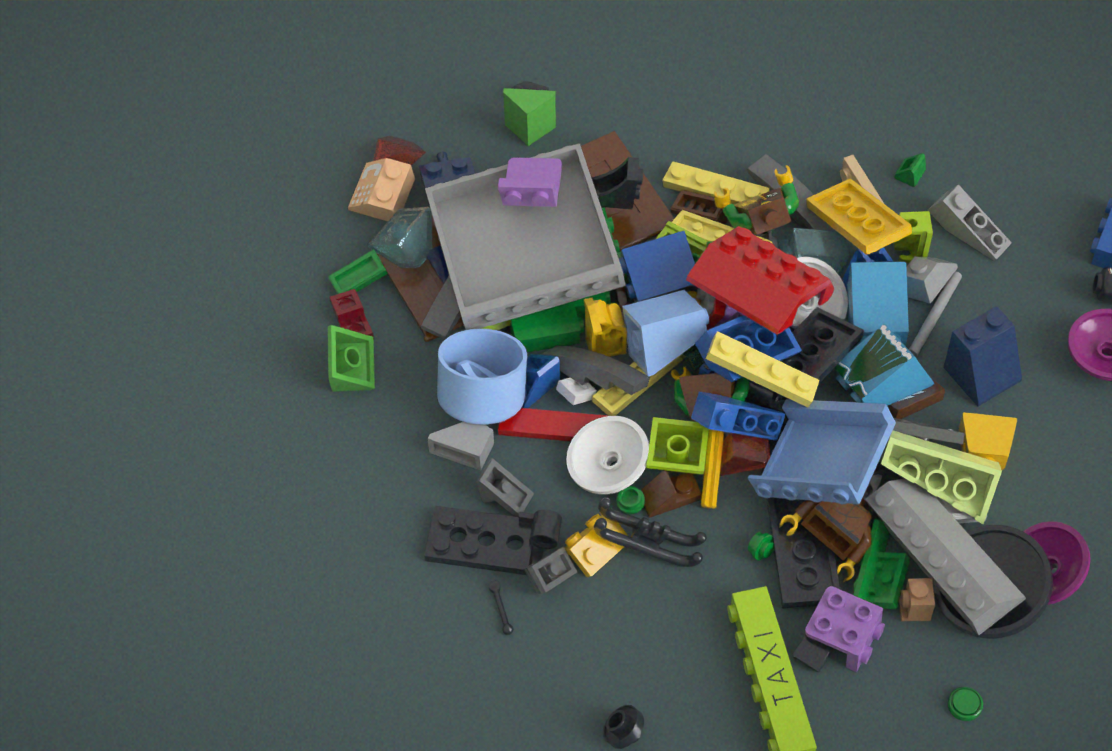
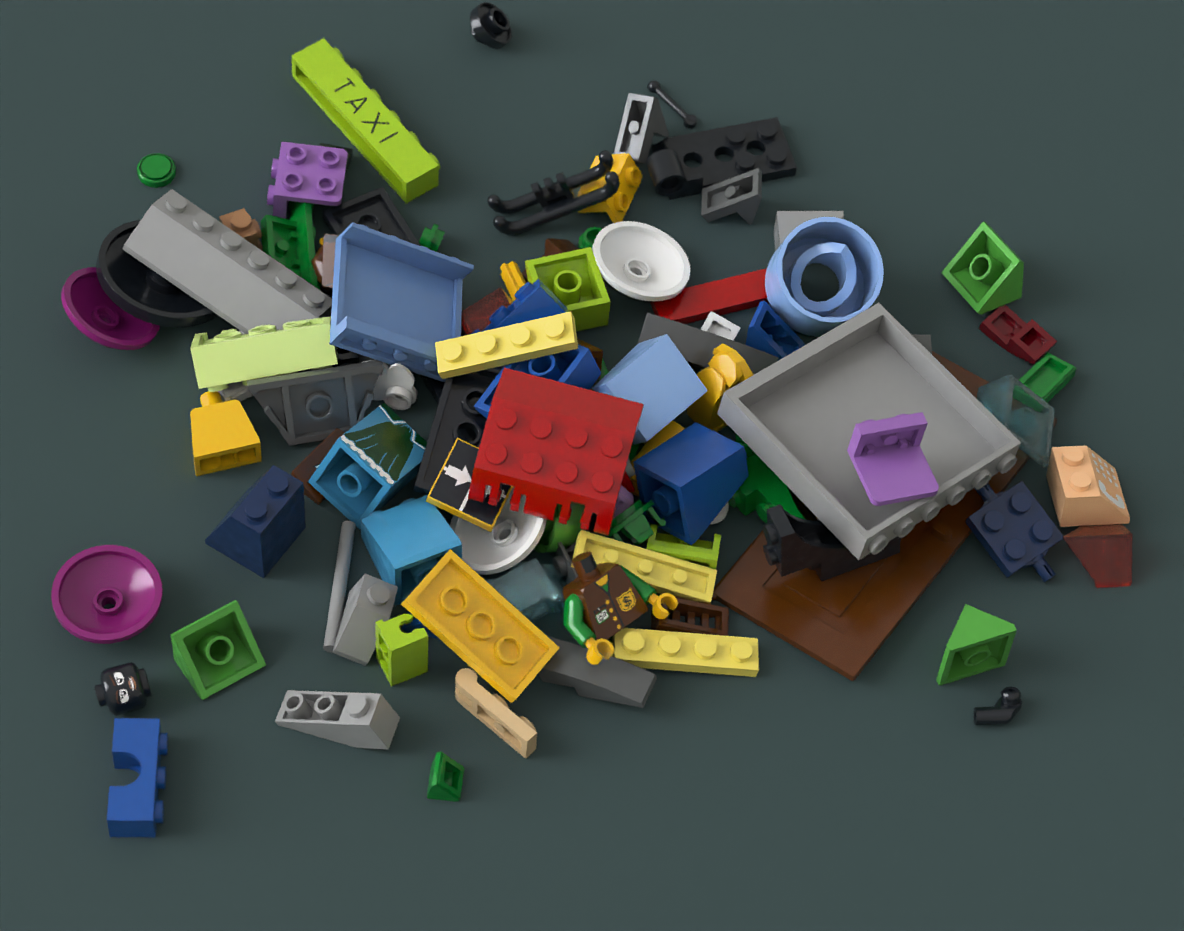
camera: 150 degrees right, 0 degrees up
(825, 320) = (453, 485): none -> black tile
(1040, 294) = (216, 650): none -> bright green slope

